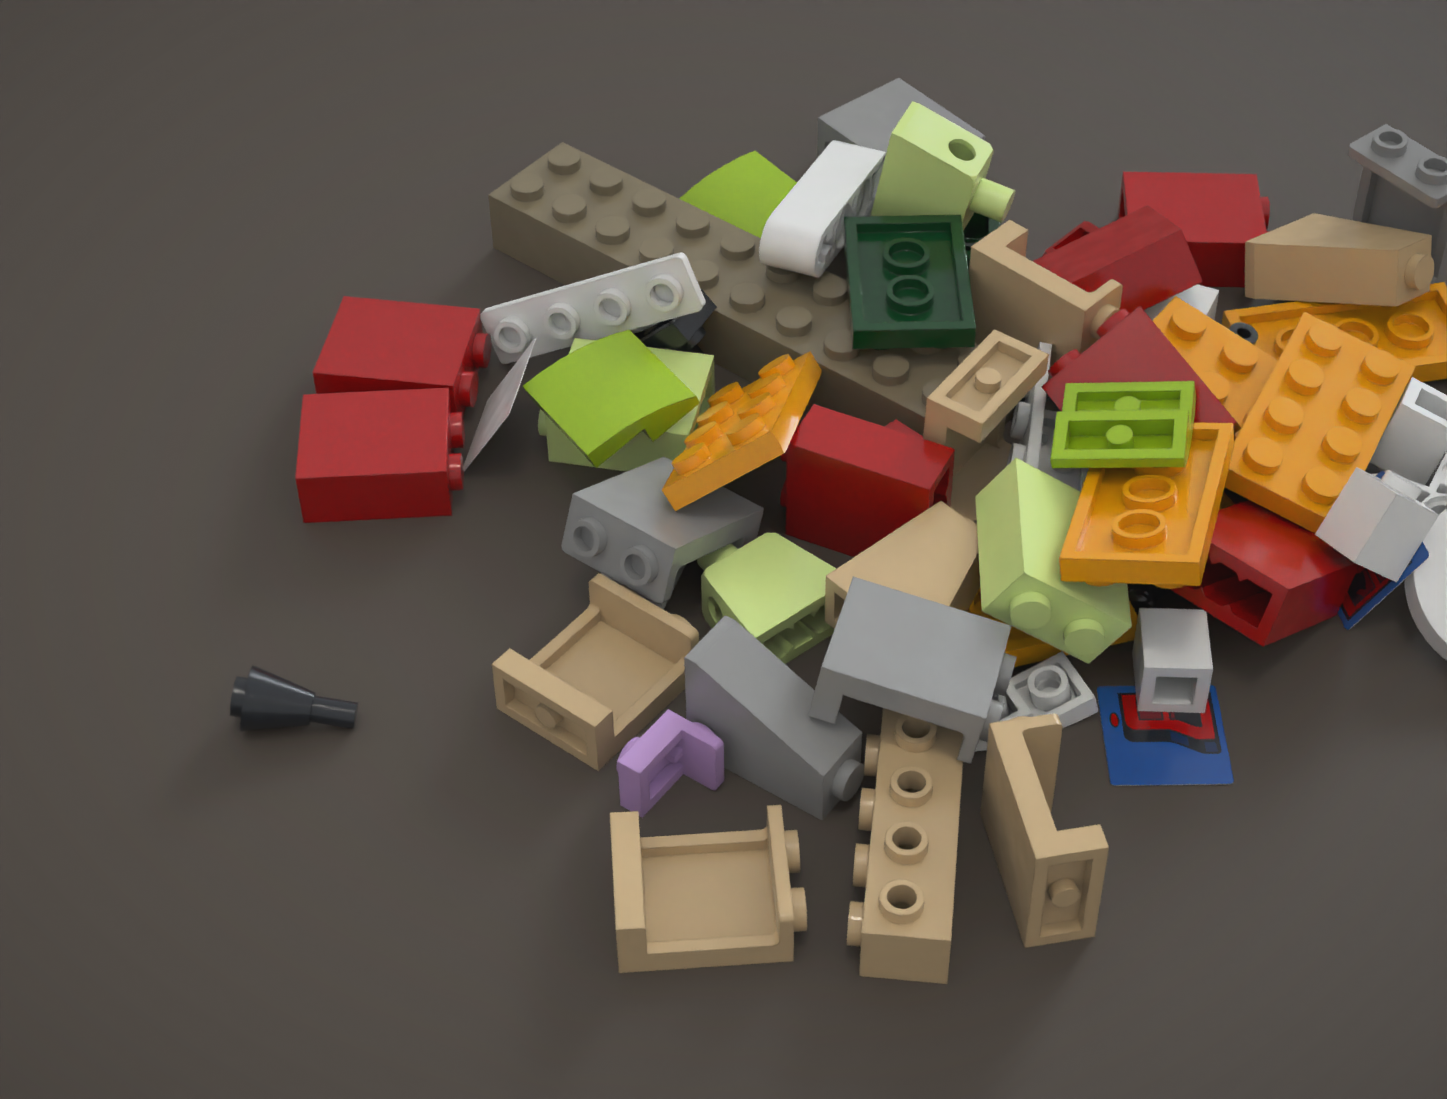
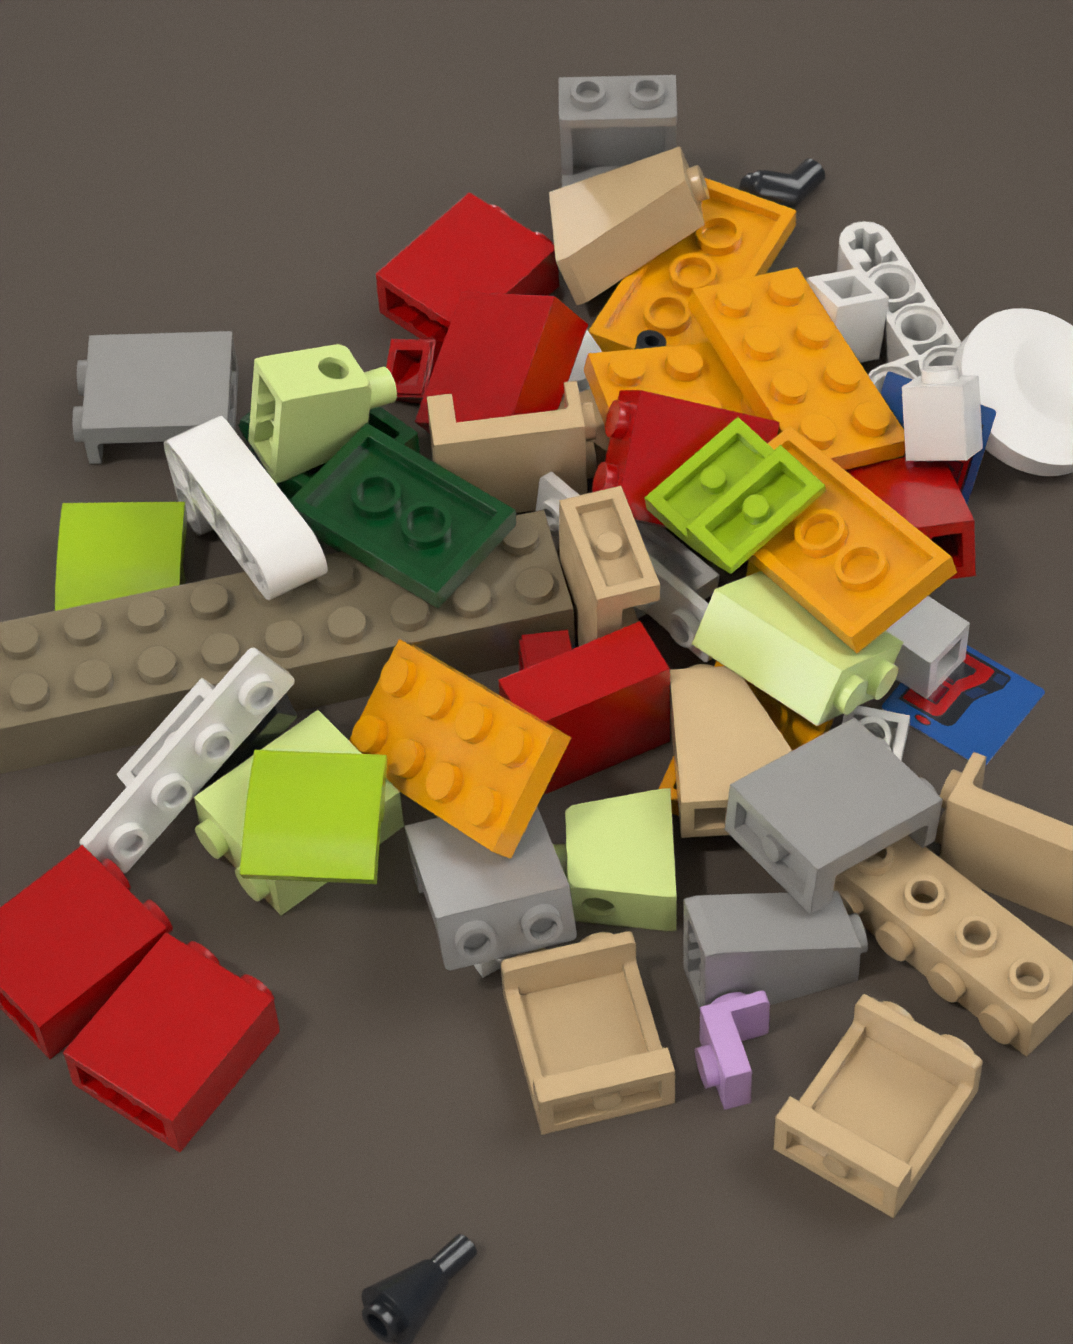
camera: 50 degrees left, 10 degrees up
(498, 406) = (216, 904): white sticker -> none

